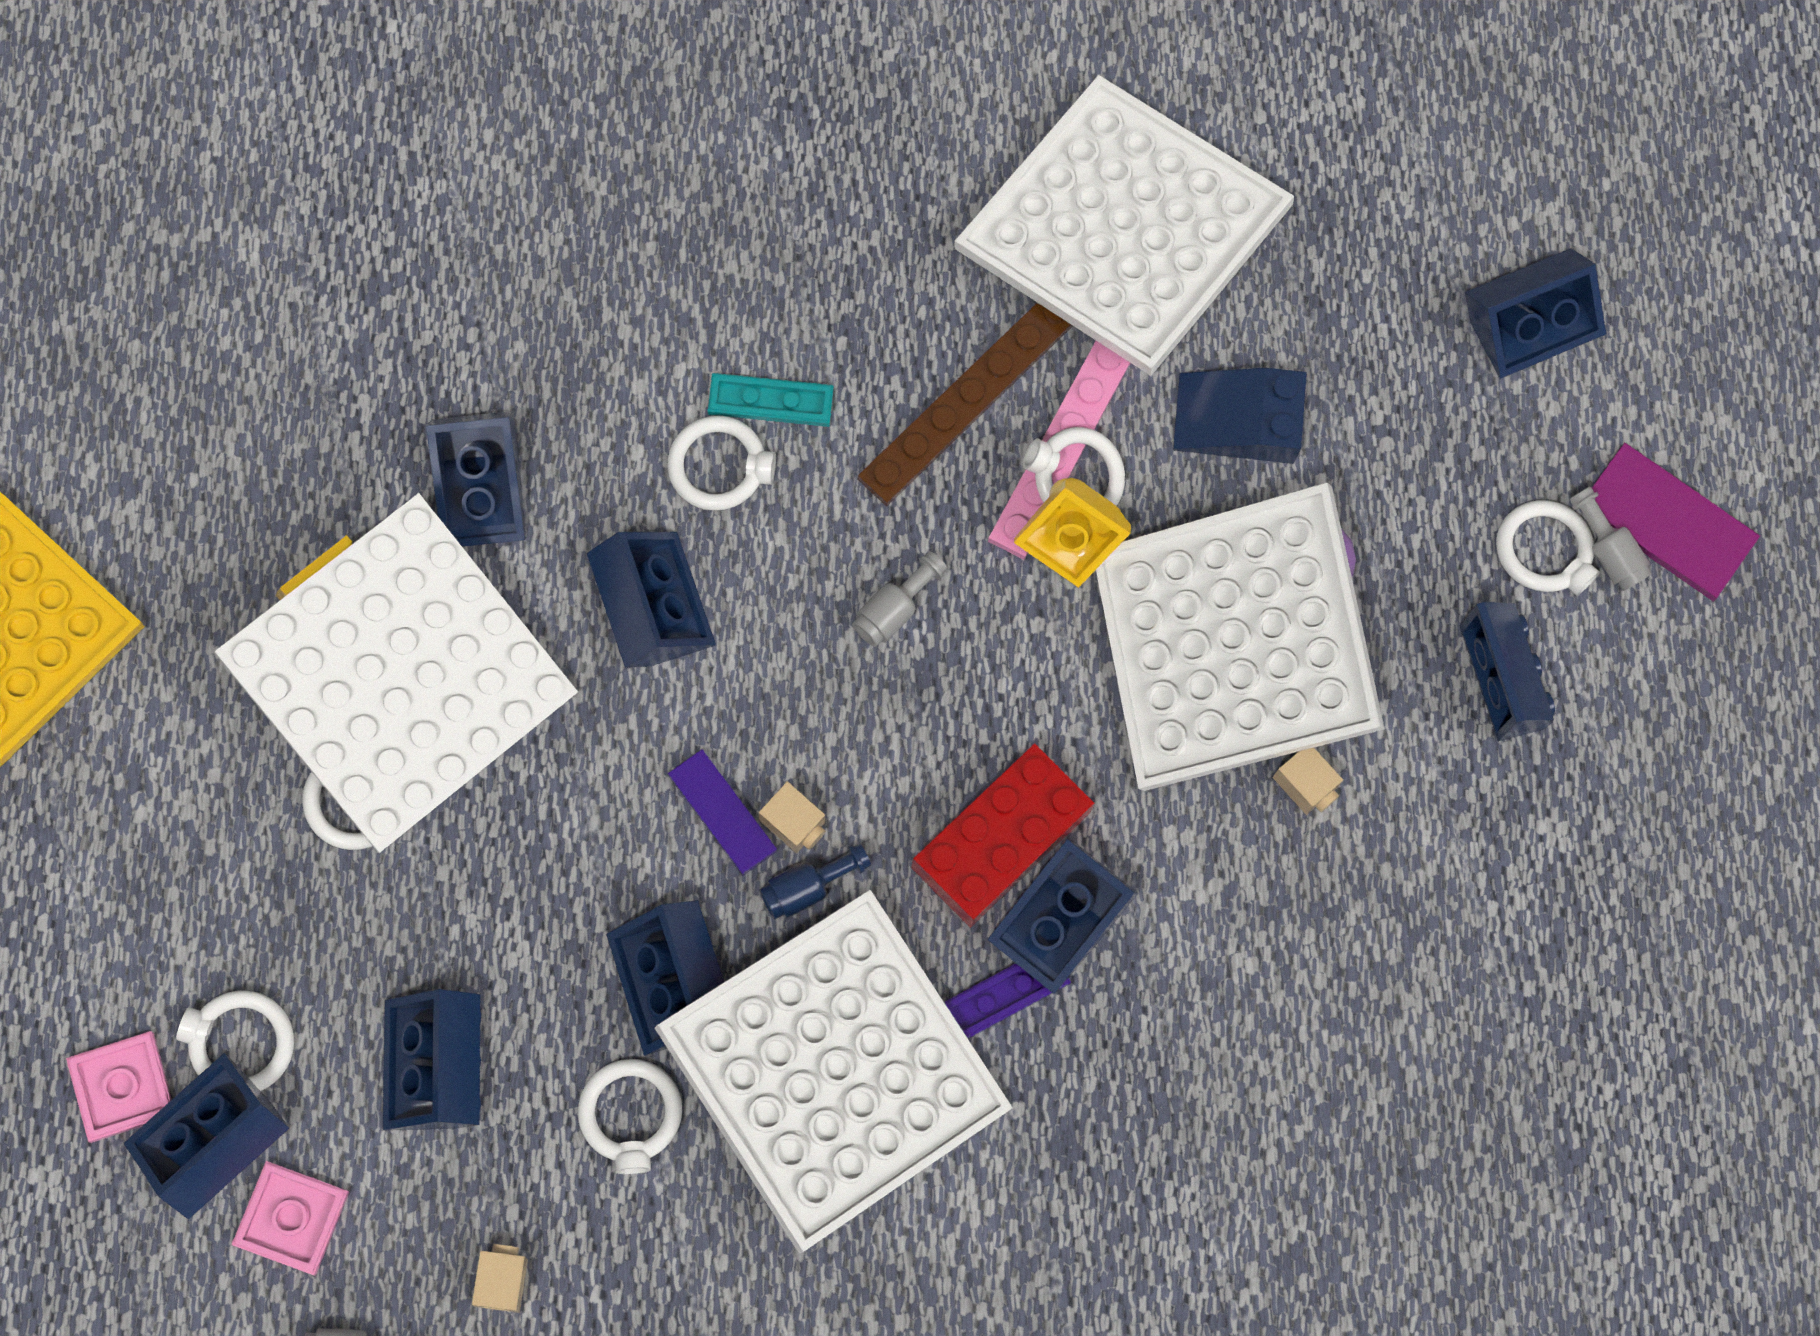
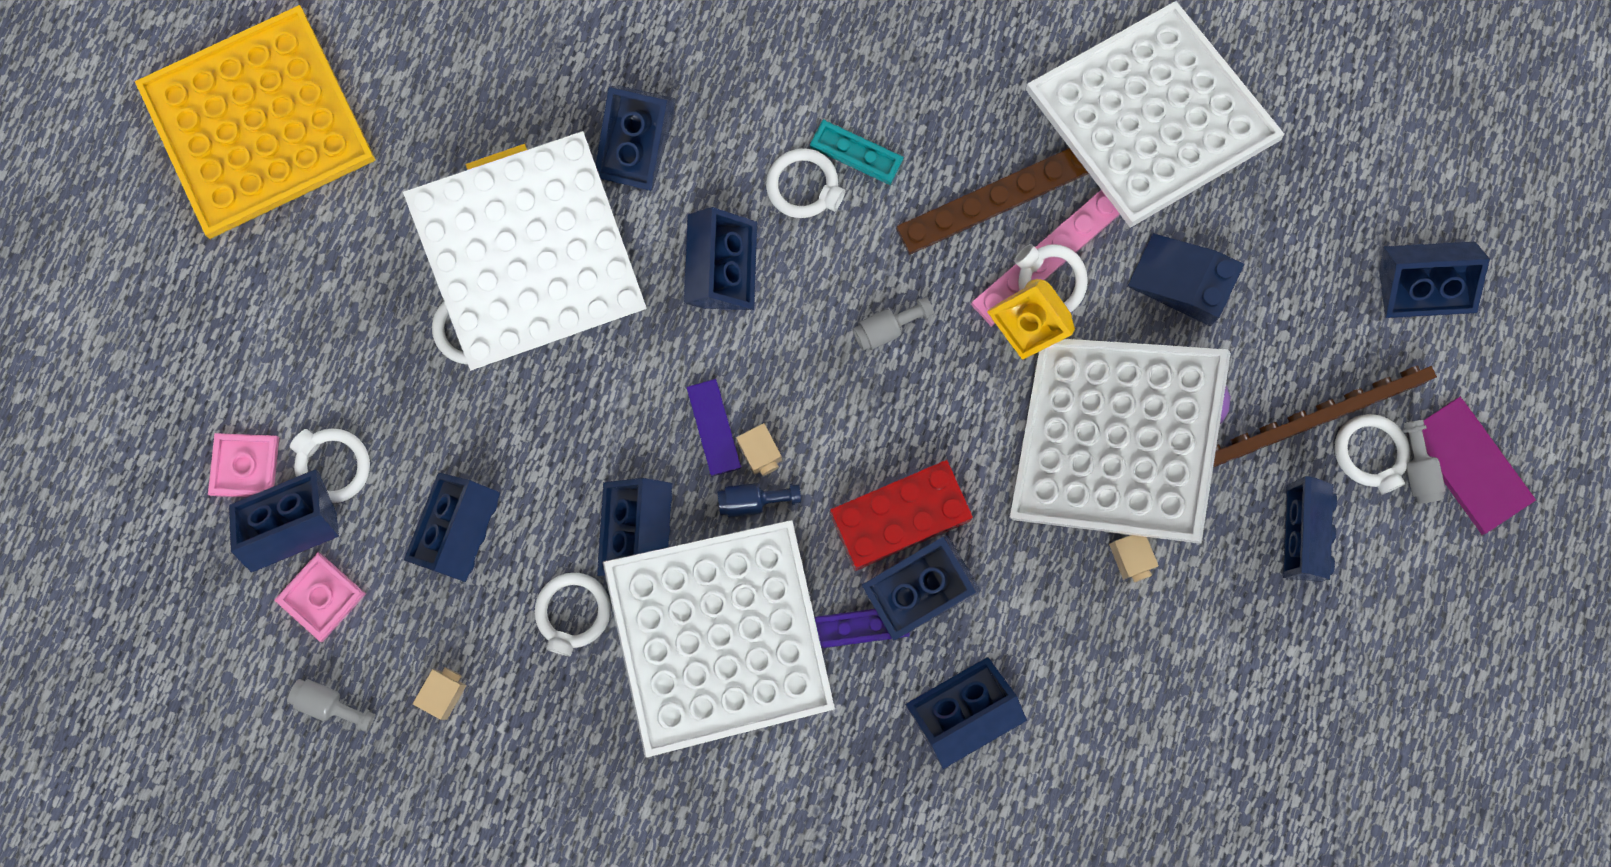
camera: 30 degrees right, 5 degrees up
(1177, 1049) = (966, 712): none -> dark blue slope
(1473, 519) = (1325, 413): none -> reddish brown plate

